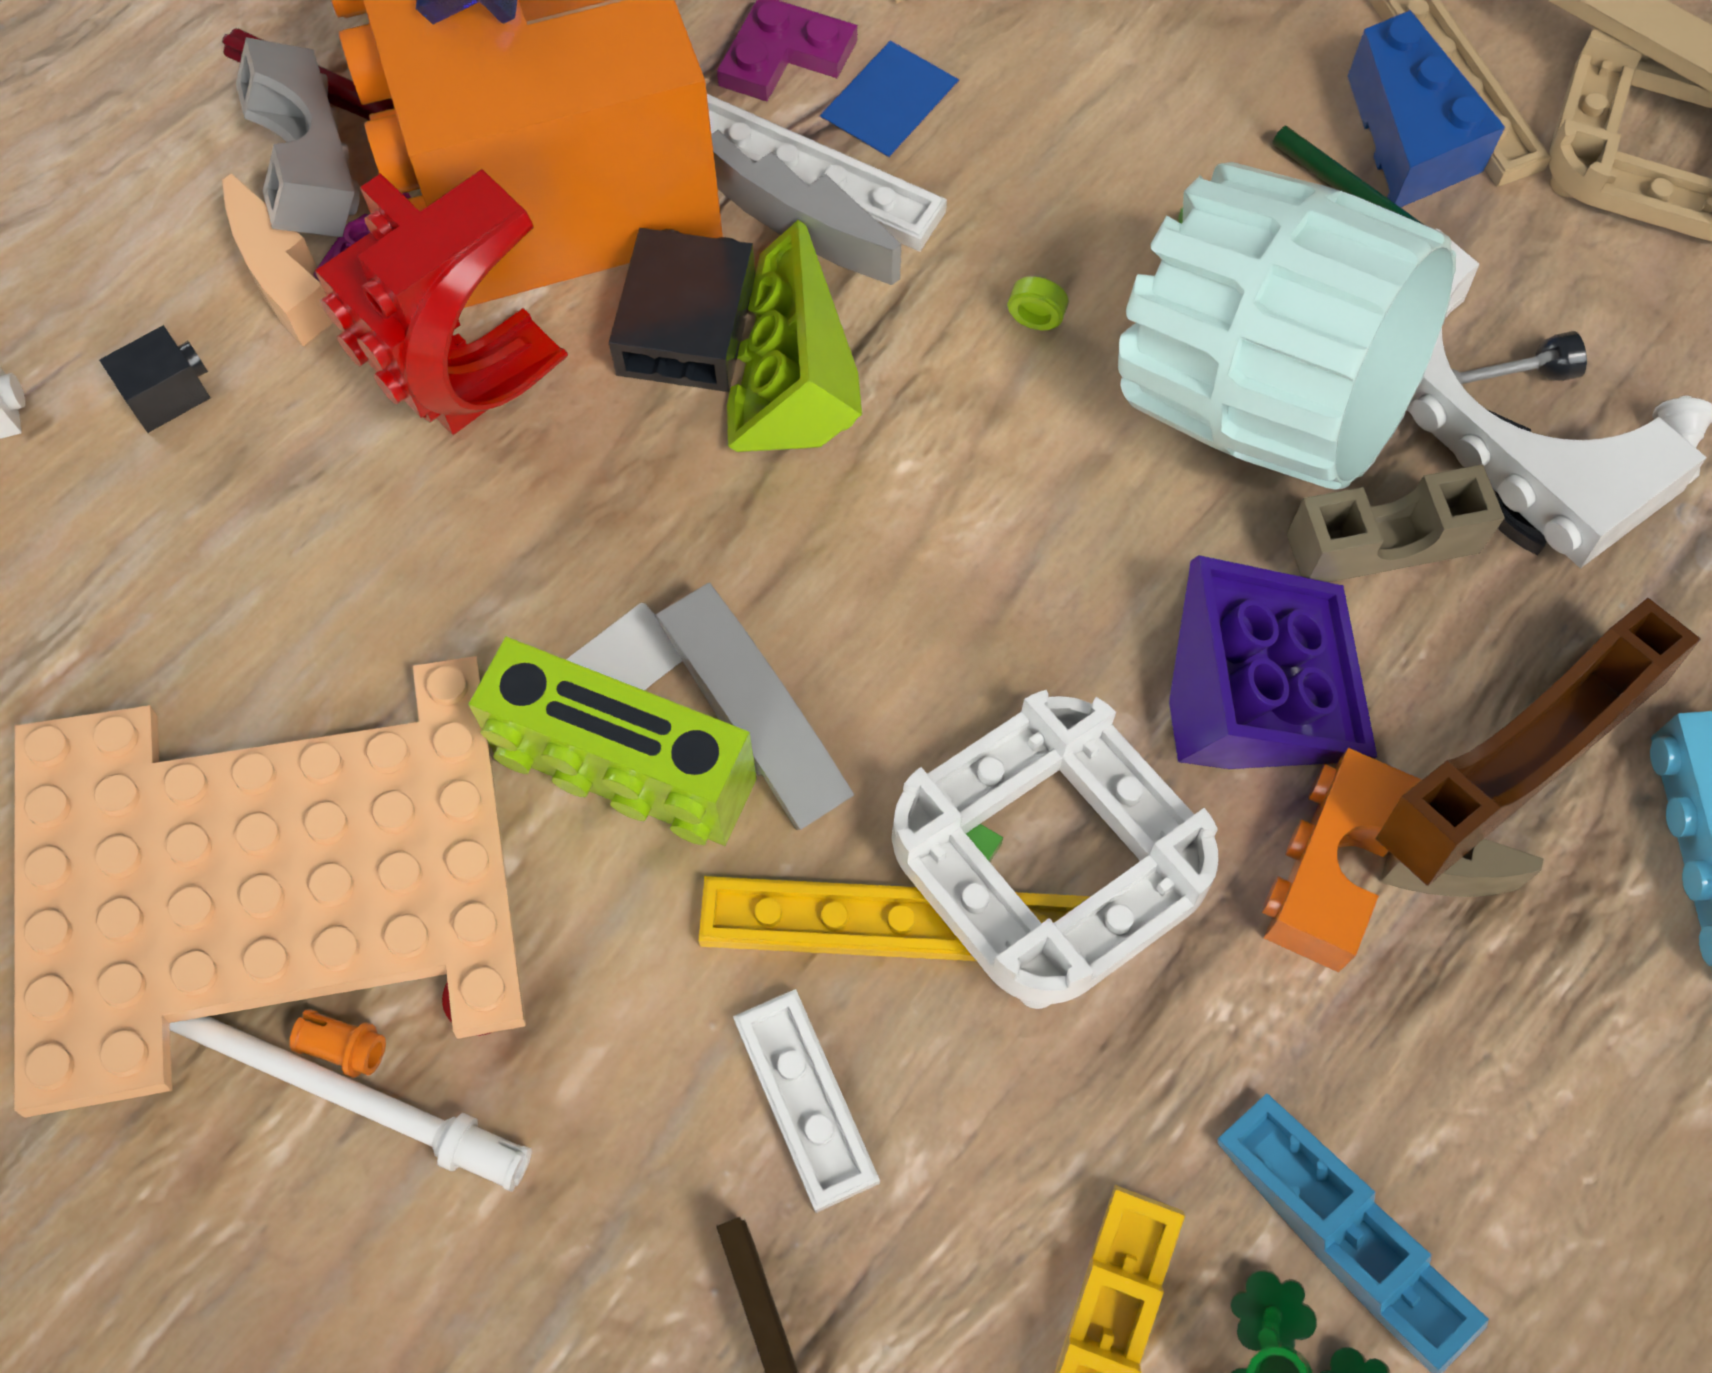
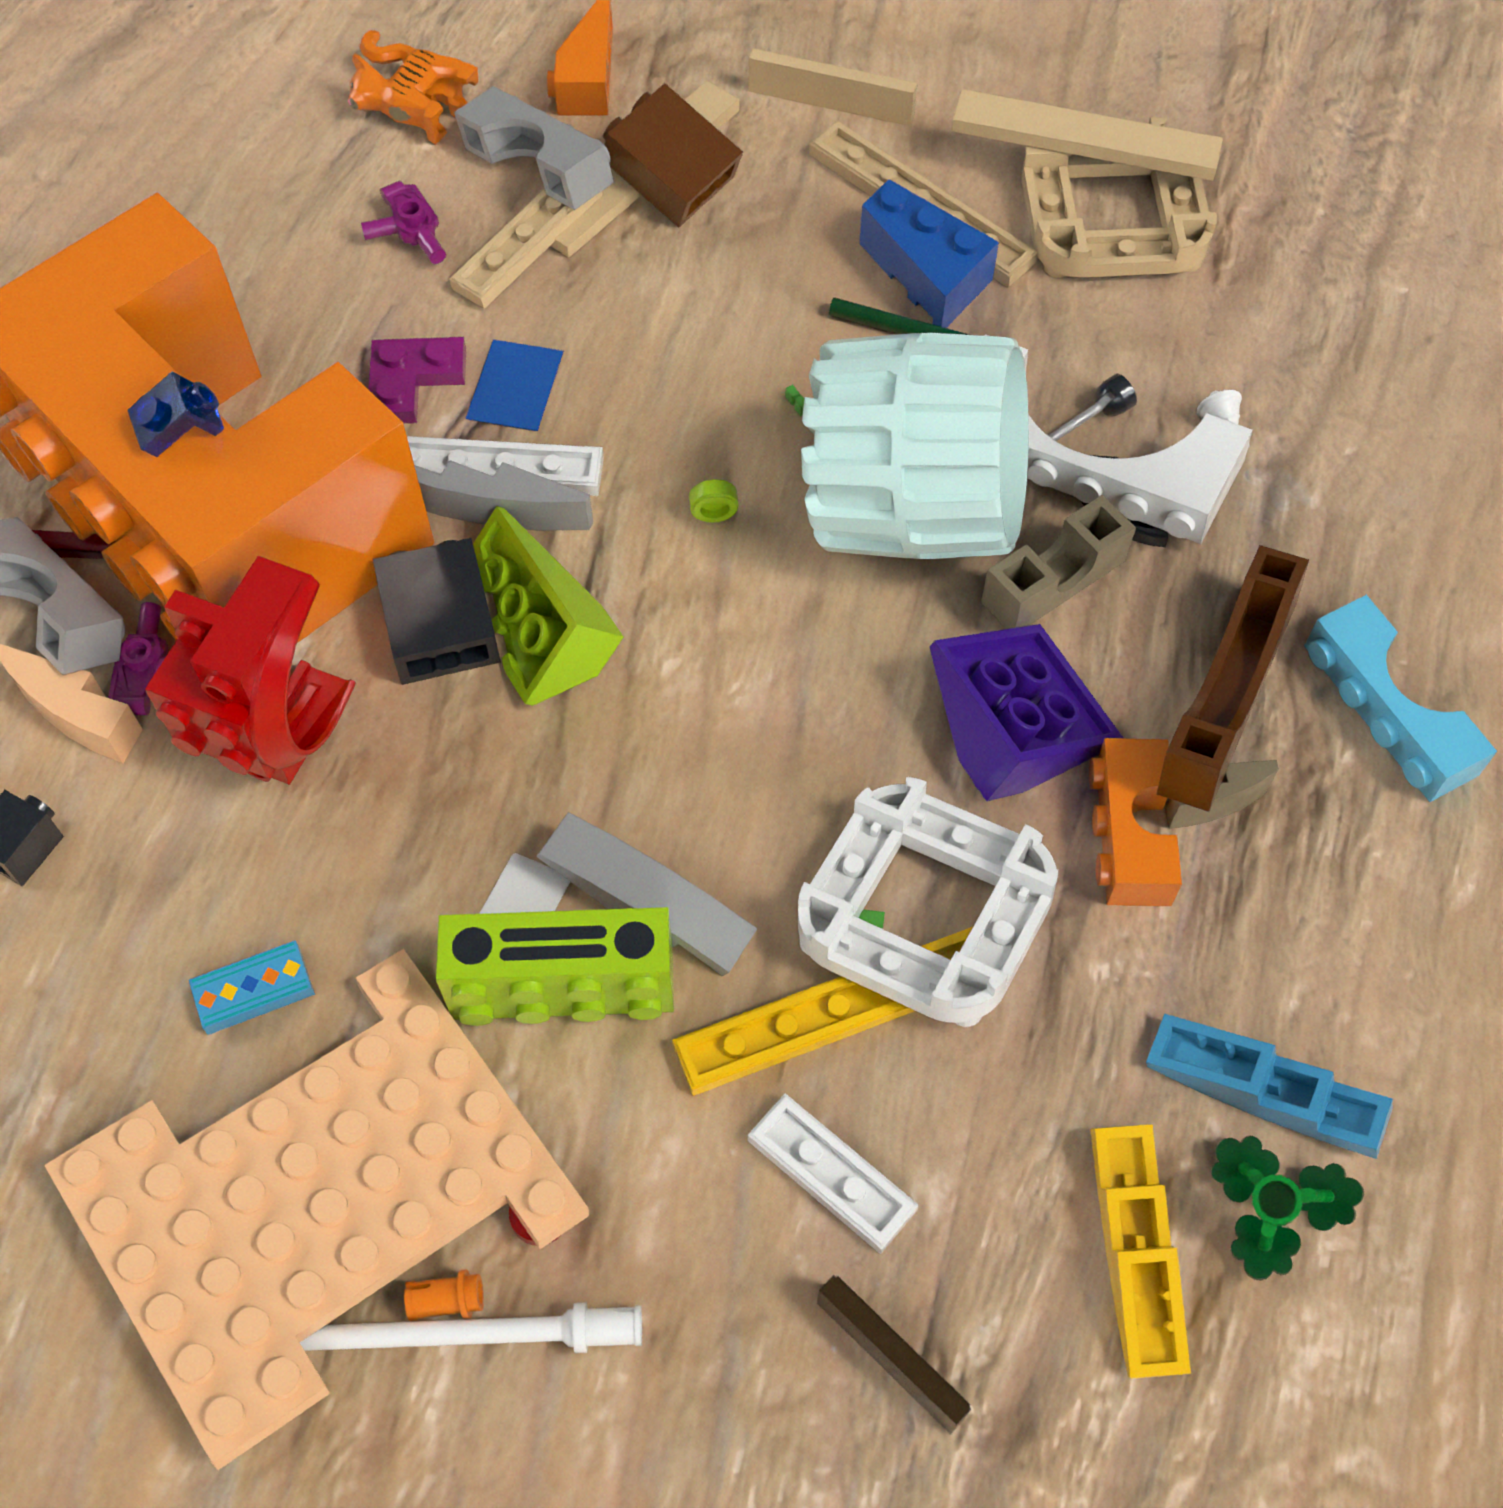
camera: 25 degrees left, 5 degrees down
(310, 631) = (251, 987): none -> dark azure tile

